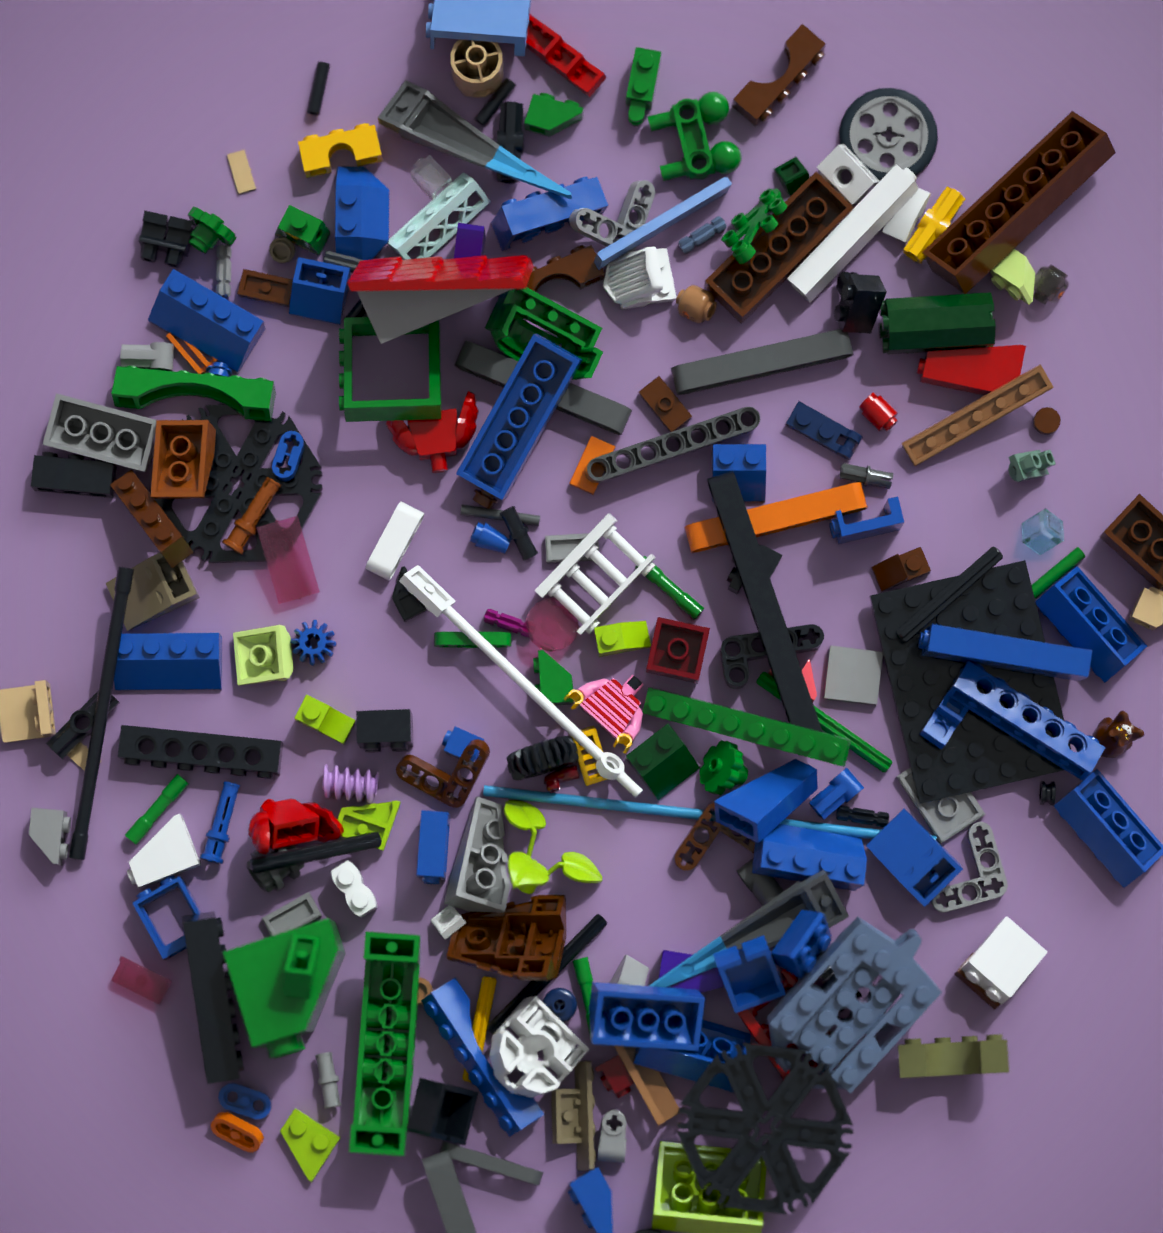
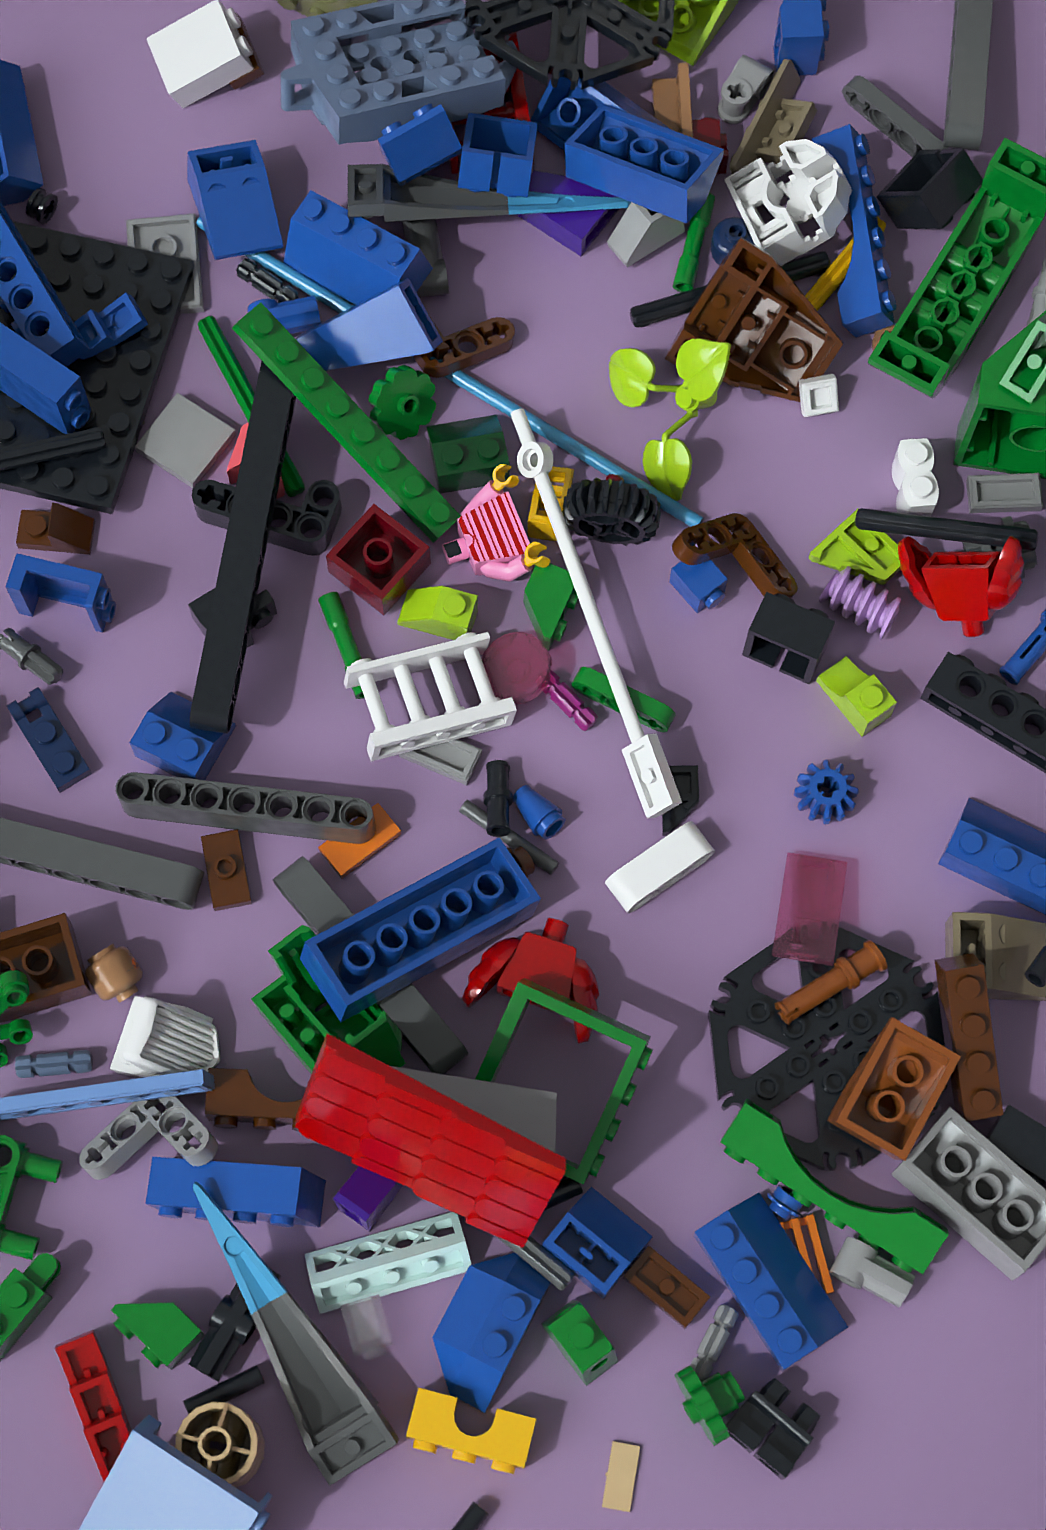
camera: 155 degrees left, 10 degrees down
(263, 655) = (898, 805): yellowish green slope -> none
(282, 249) = (620, 1328): dark tan plate -> none
(282, 454) = (754, 1045): blue beam -> none
(433, 846) = (795, 476): blue window -> none
(479, 870) = (753, 431): light grey wedge -> none
(782, 515) = (159, 659): orange beam -> none
(985, 874) = (165, 159): light grey beam -> none

